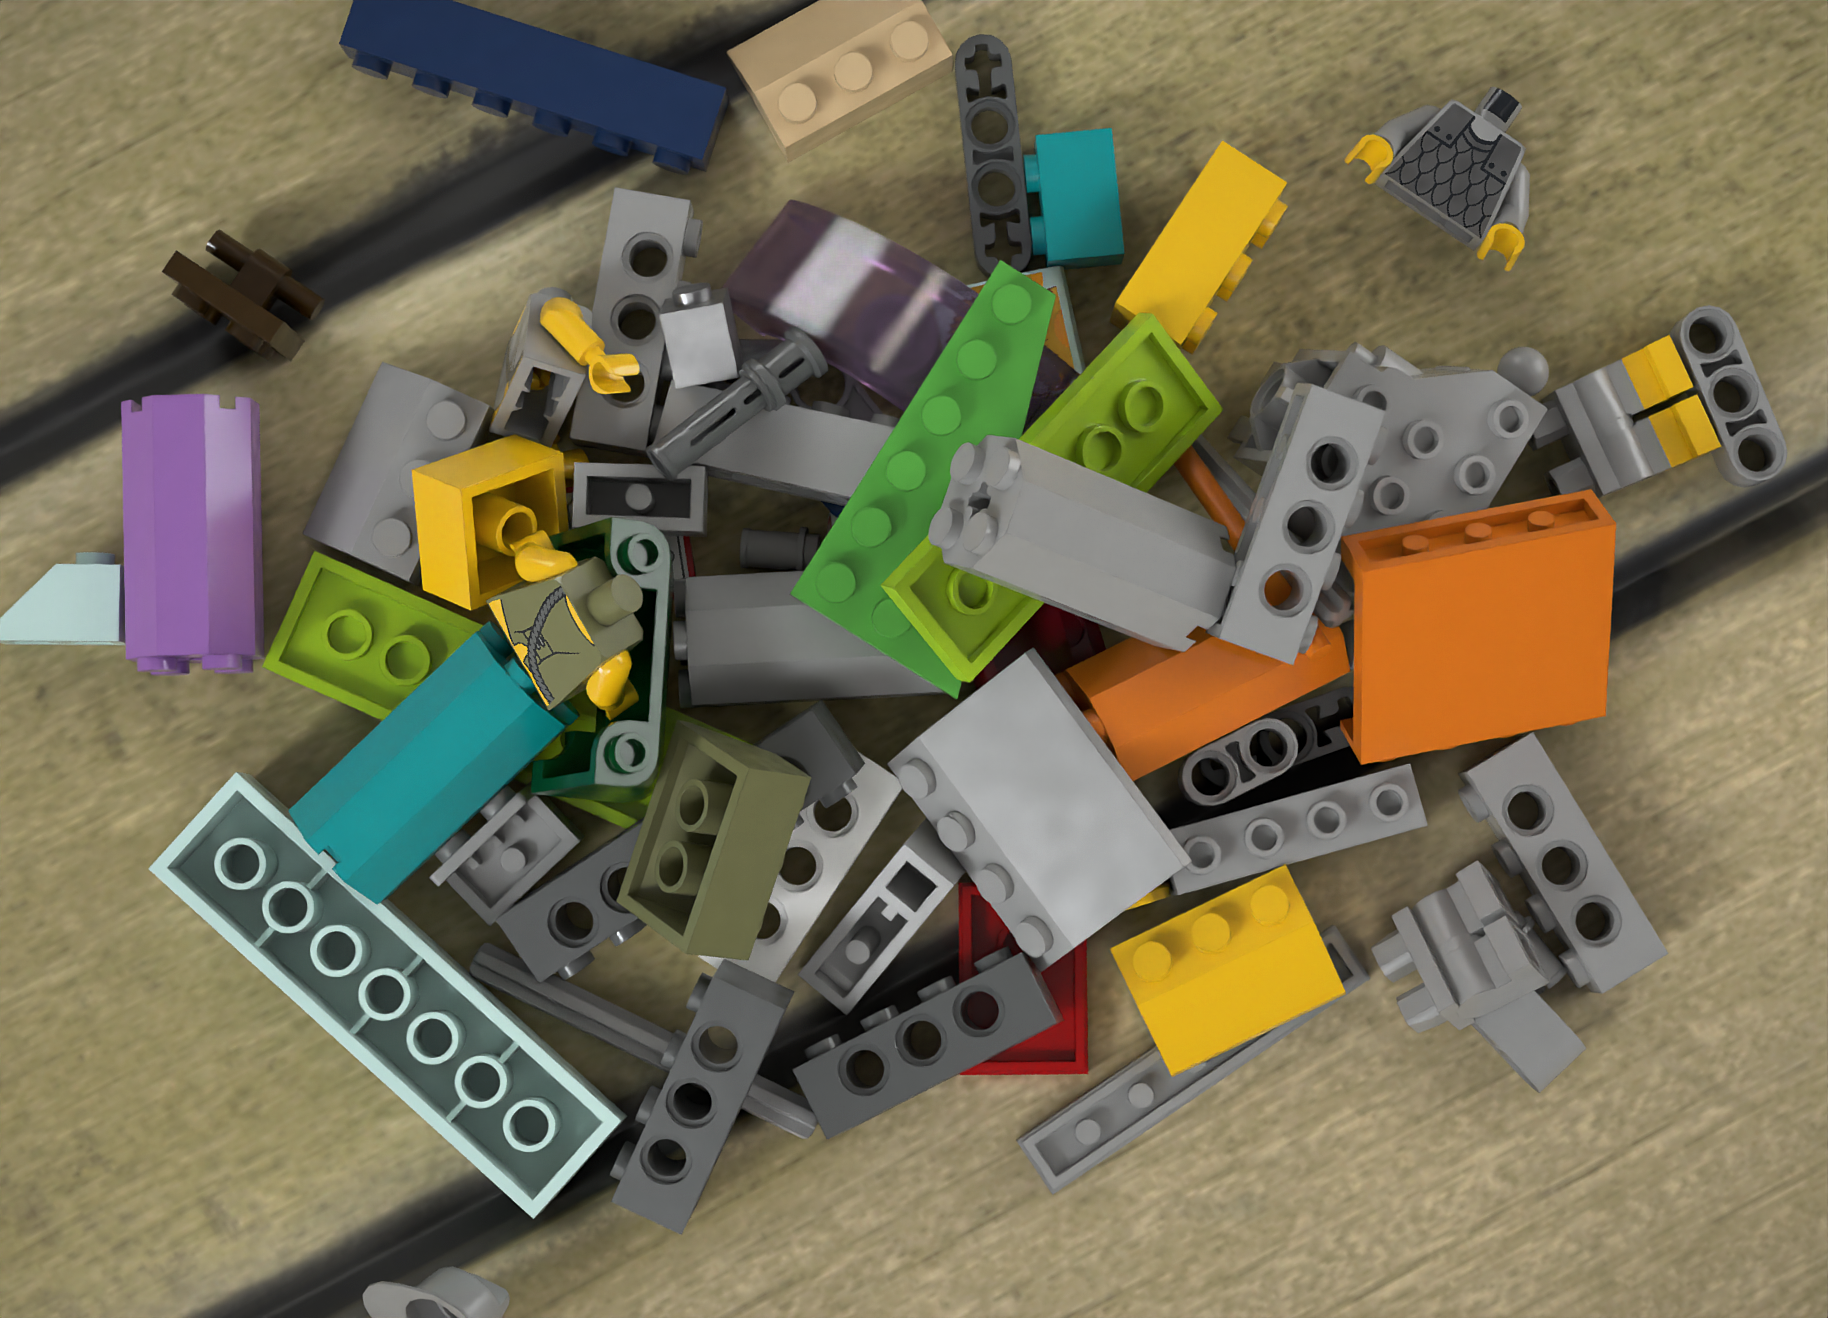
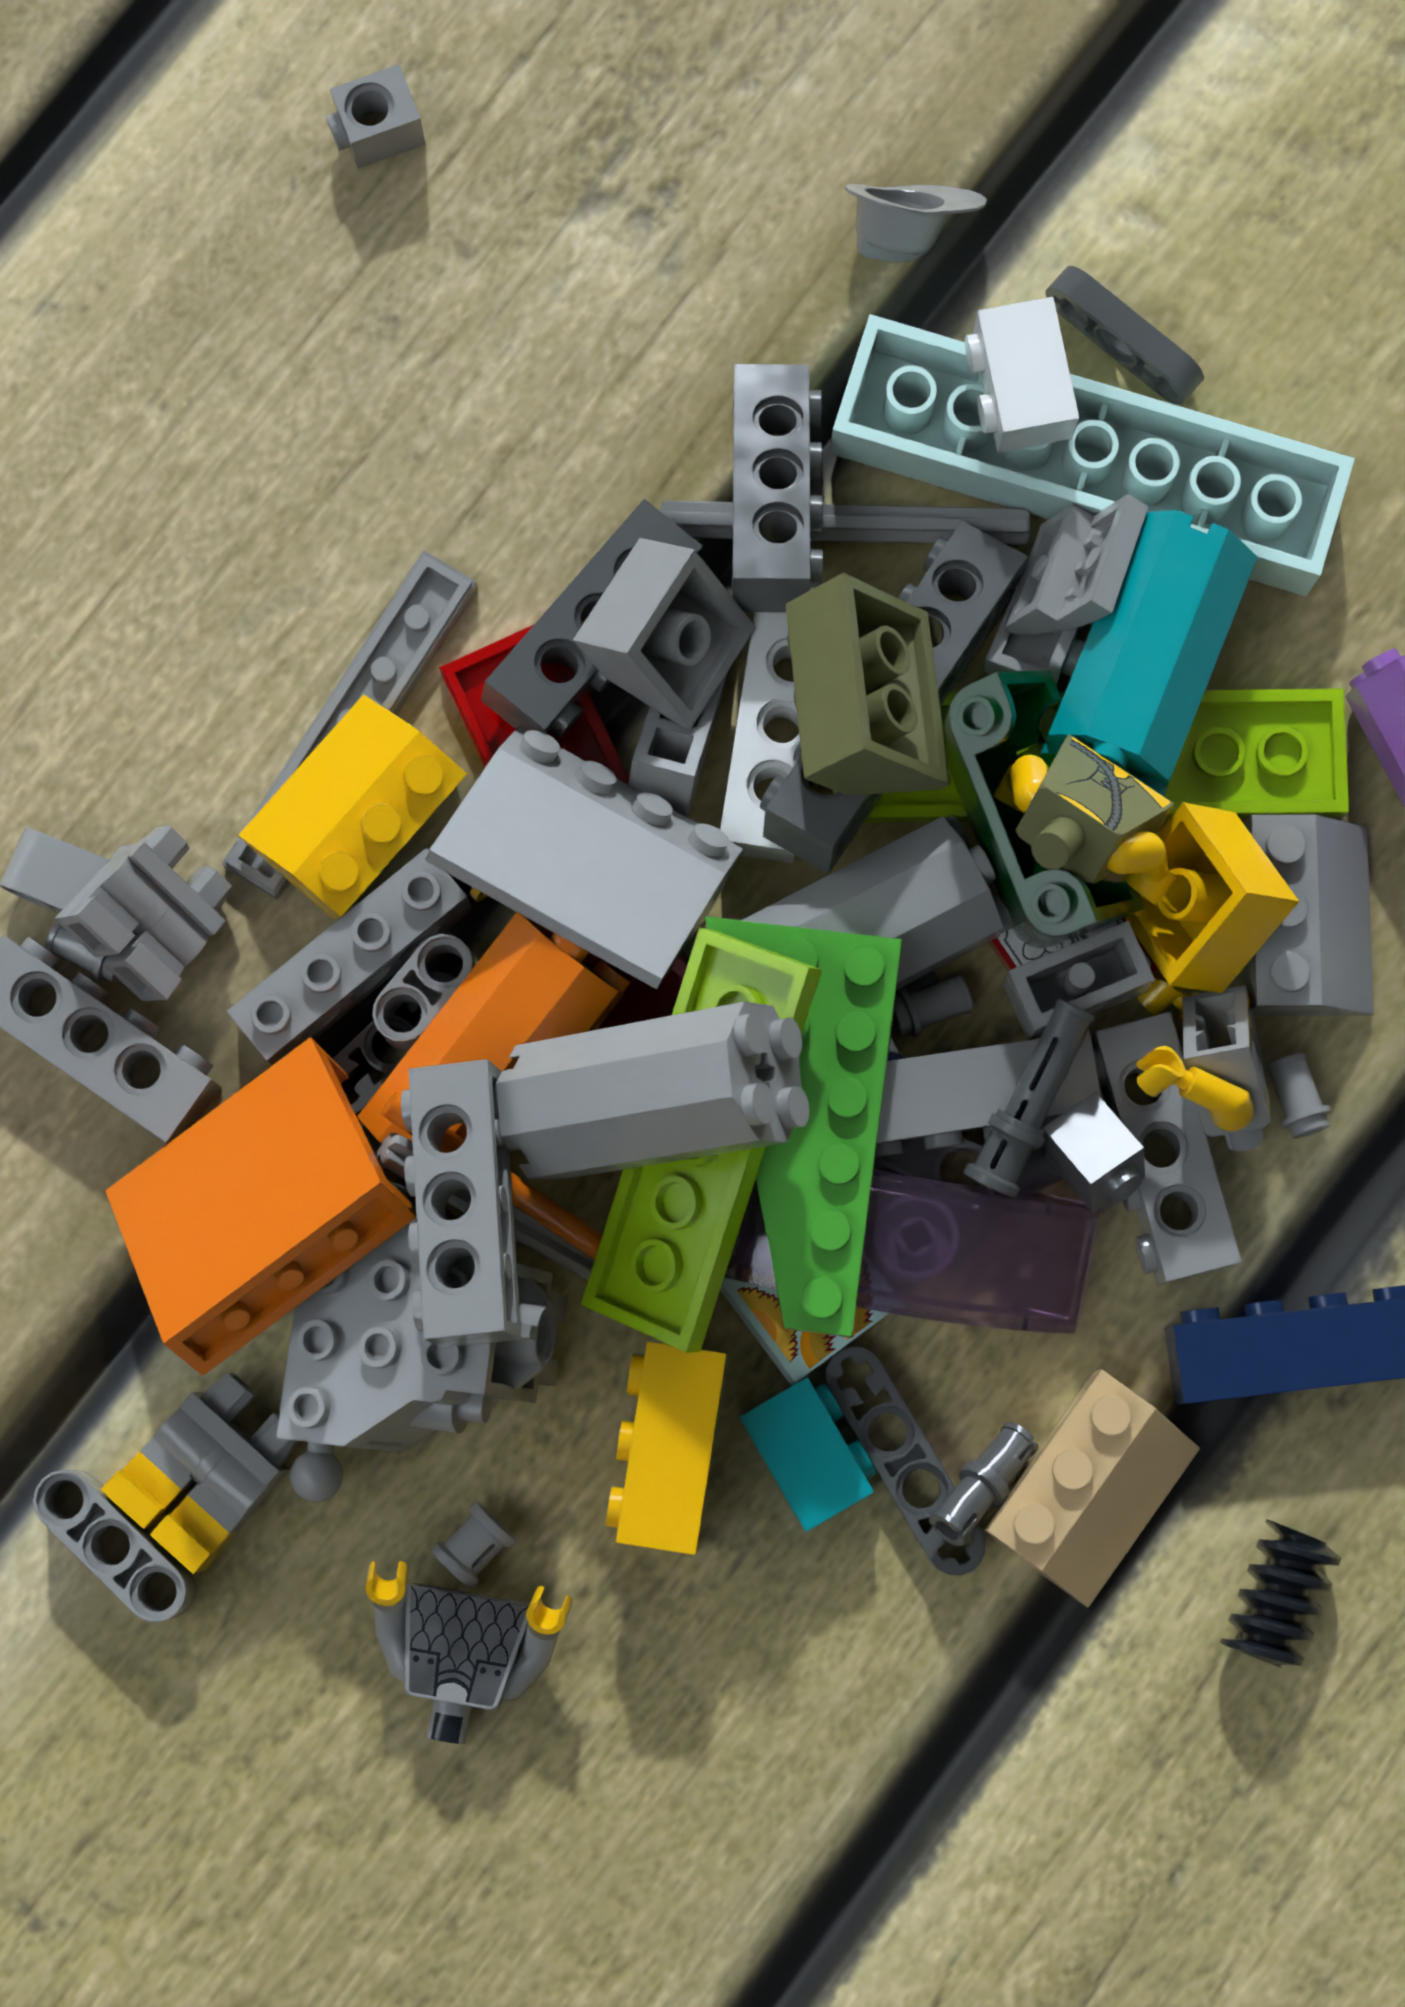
camera: 155 degrees right, 5 degrees down
(296, 1101) = (1125, 335): none -> dark grey beam
(422, 1084) = (1023, 375): none -> white brick
(457, 882) = (1076, 567): none -> light grey slope
(487, 316) = (1298, 1096): none -> light grey pin
(868, 993) = (665, 630): none -> light grey slope
(933, 102) = (983, 1483): none -> dark grey pin
(1407, 254) = (474, 1545): none -> light grey bush

